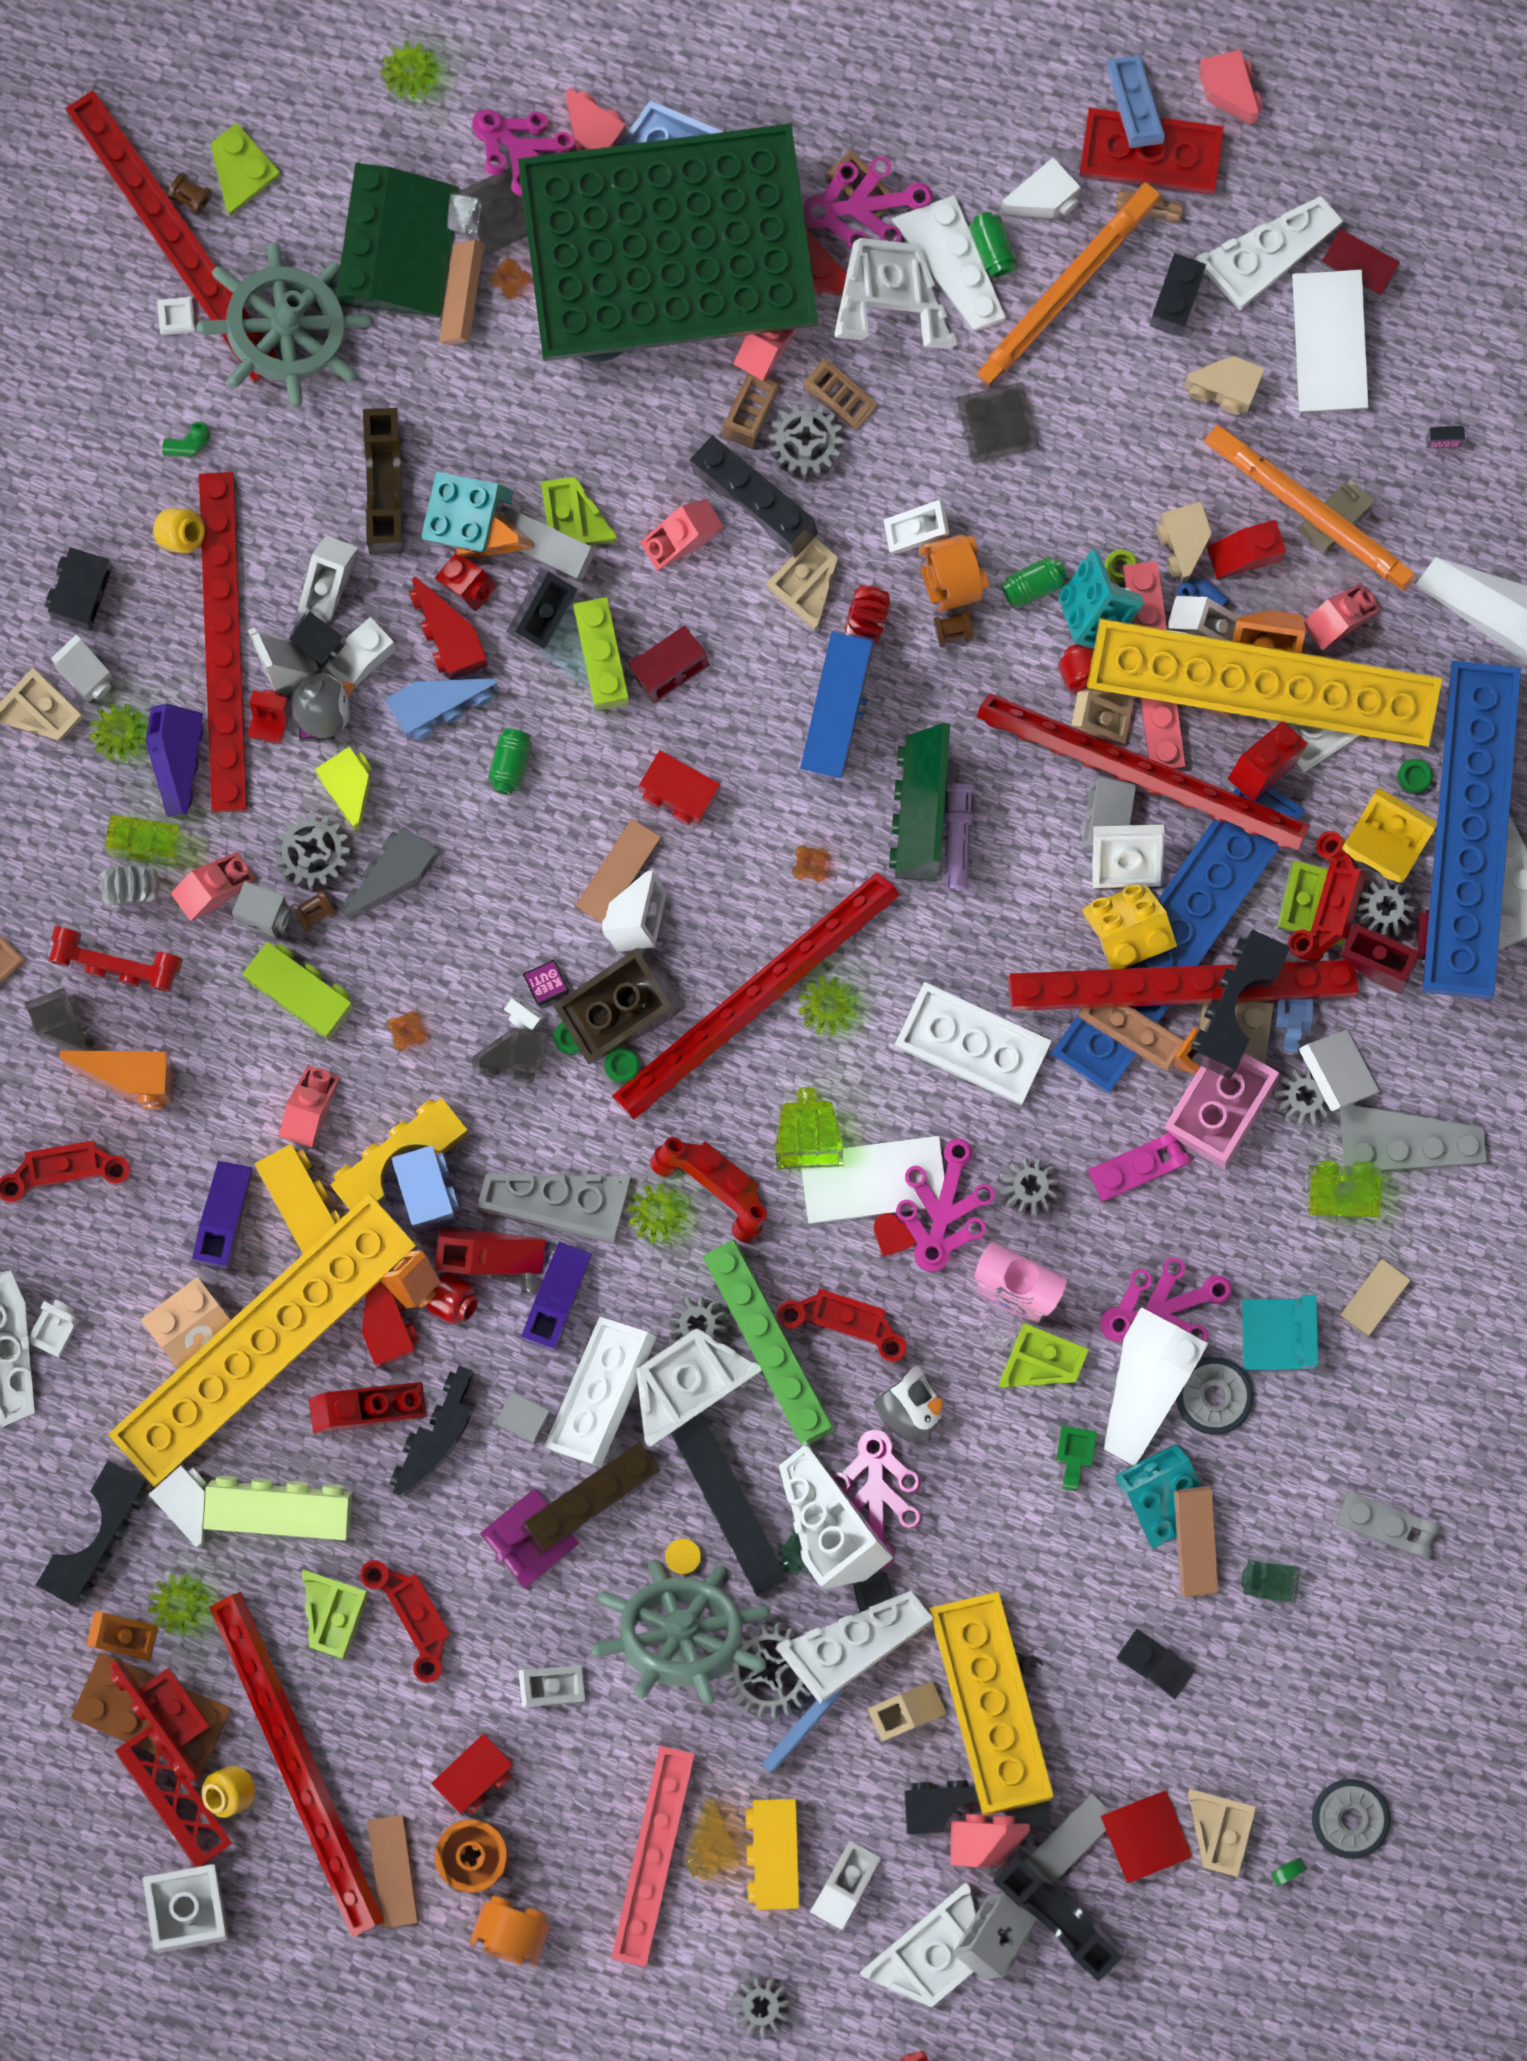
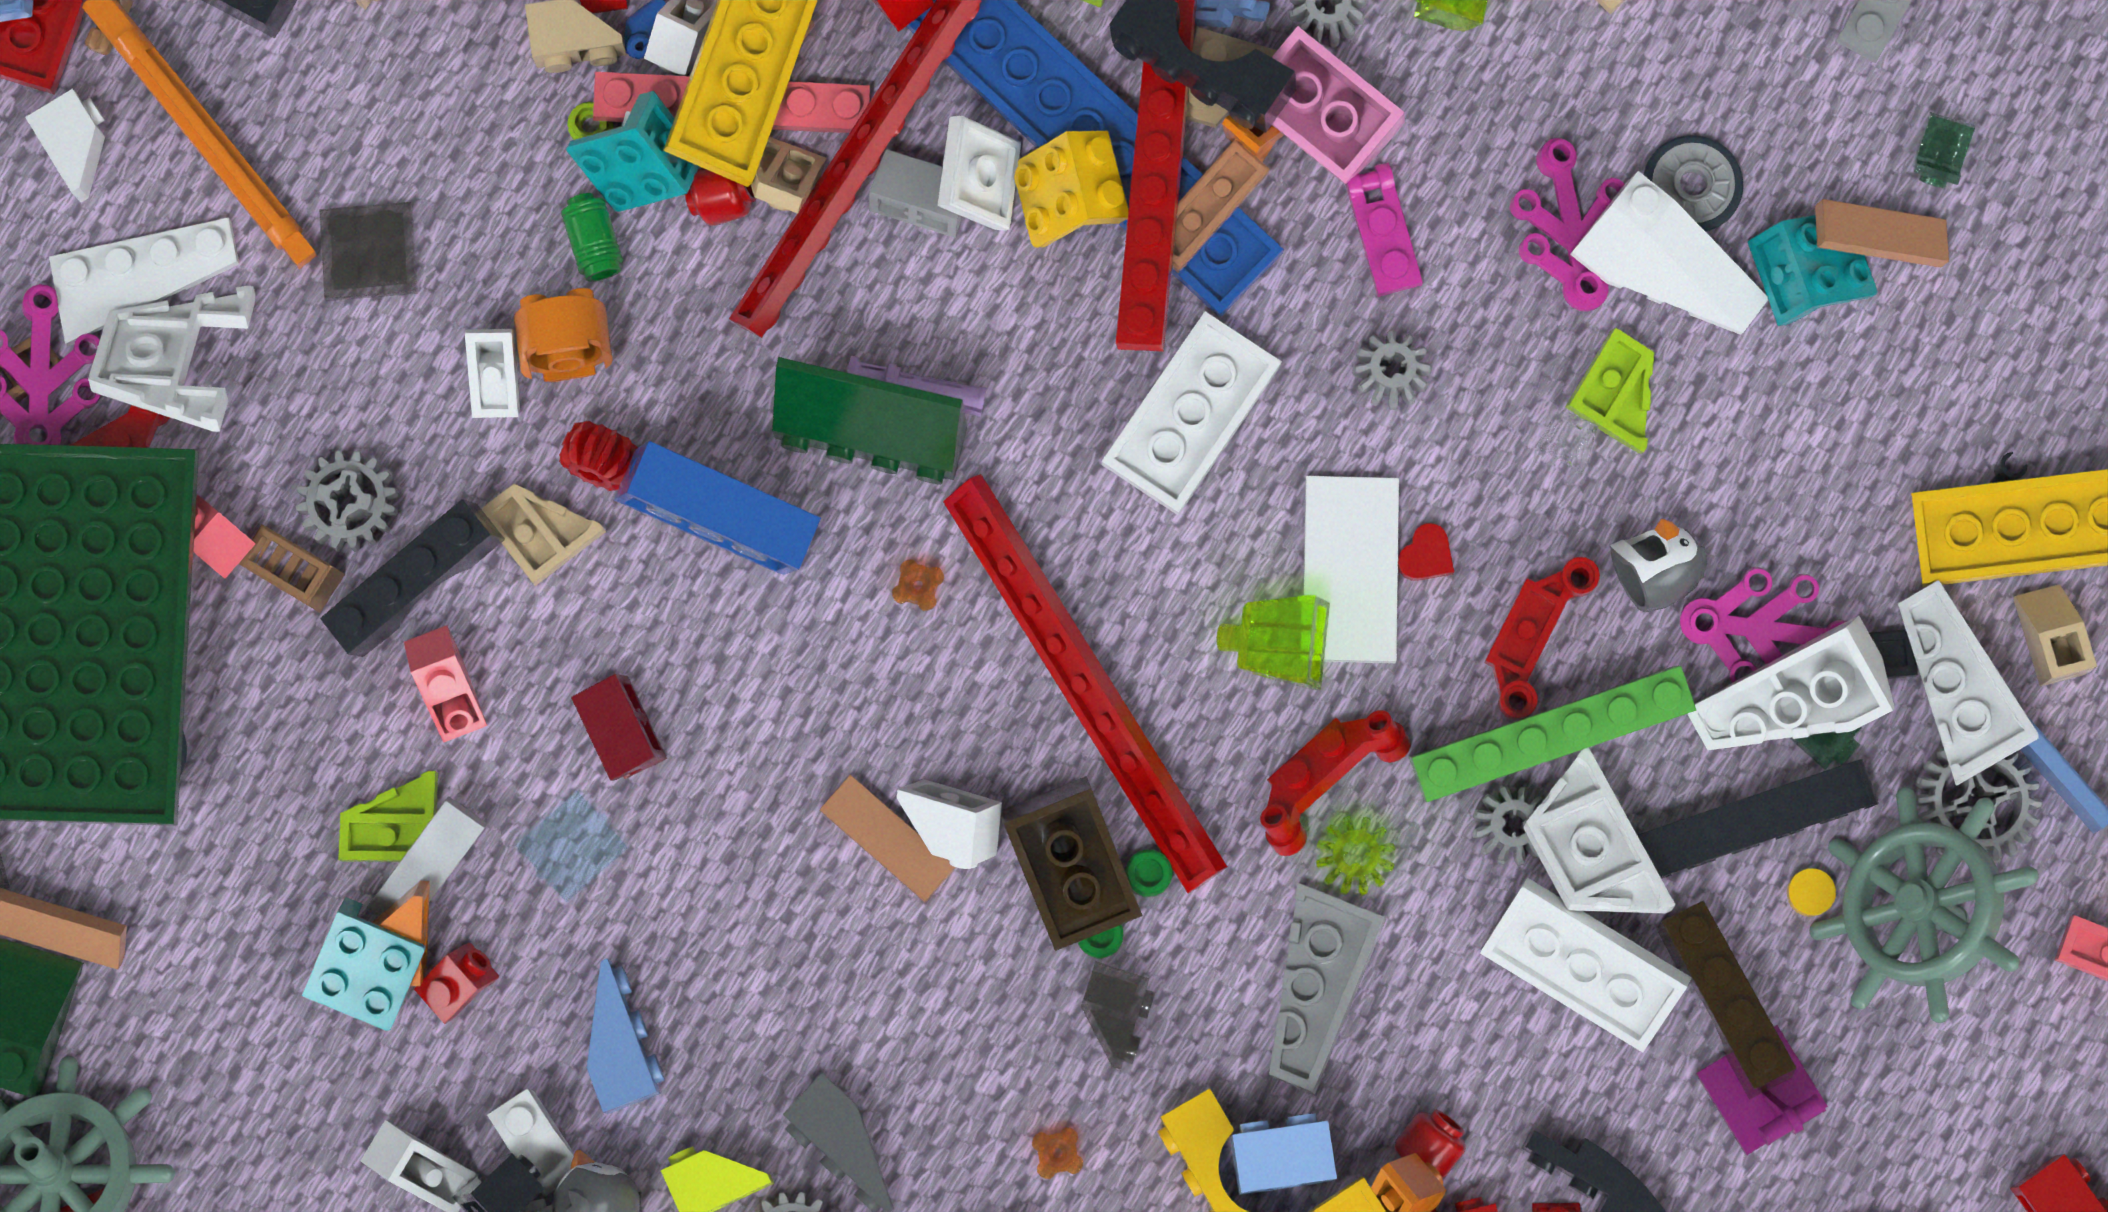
camera: 75 degrees left, 0 degrees up
(384, 481) = (299, 1071): dark brown arch -> none
(454, 636) = (532, 1008): red slope -> none
(488, 1252) = (1376, 1089): red slope -> none
(506, 269) = (61, 861): clear orange plate -> none
(509, 761) = (715, 959): green head -> none
(522, 1418) = (1605, 1072): light grey panel -> none
(523, 1014) = (1062, 991): white plate -> none
(528, 1282) = (1422, 1039): clear smoke hand -> none
(541, 610) = (517, 883): black brick -> none
(545, 982) = (1021, 957): tile -> none
(551, 1686) = (1964, 1088): white slope -> none
(556, 1297) = (1449, 1004): dark purple slope -> none
(600, 654) = (590, 814): lime brick -> none
(678, 788) = (790, 740): red brick -> none
(821, 395) = (290, 471): medium nougat slope -> none
(840, 1005) = (1109, 606): clear neon green gear -> none
(942, 1211) = (1406, 486): dark pink plant -> none
(953, 628) = (636, 349): reddish brown bush -> none
(993, 244) = (126, 217): green head -> none
(1017, 1283) = (1526, 395): bright pink piece -> none
(1075, 1450) = (1740, 367): green plate -> none
(1155, 1663) = (2025, 313): black slope -> none
(1280, 1333) = (1627, 85): teal bracket -> none

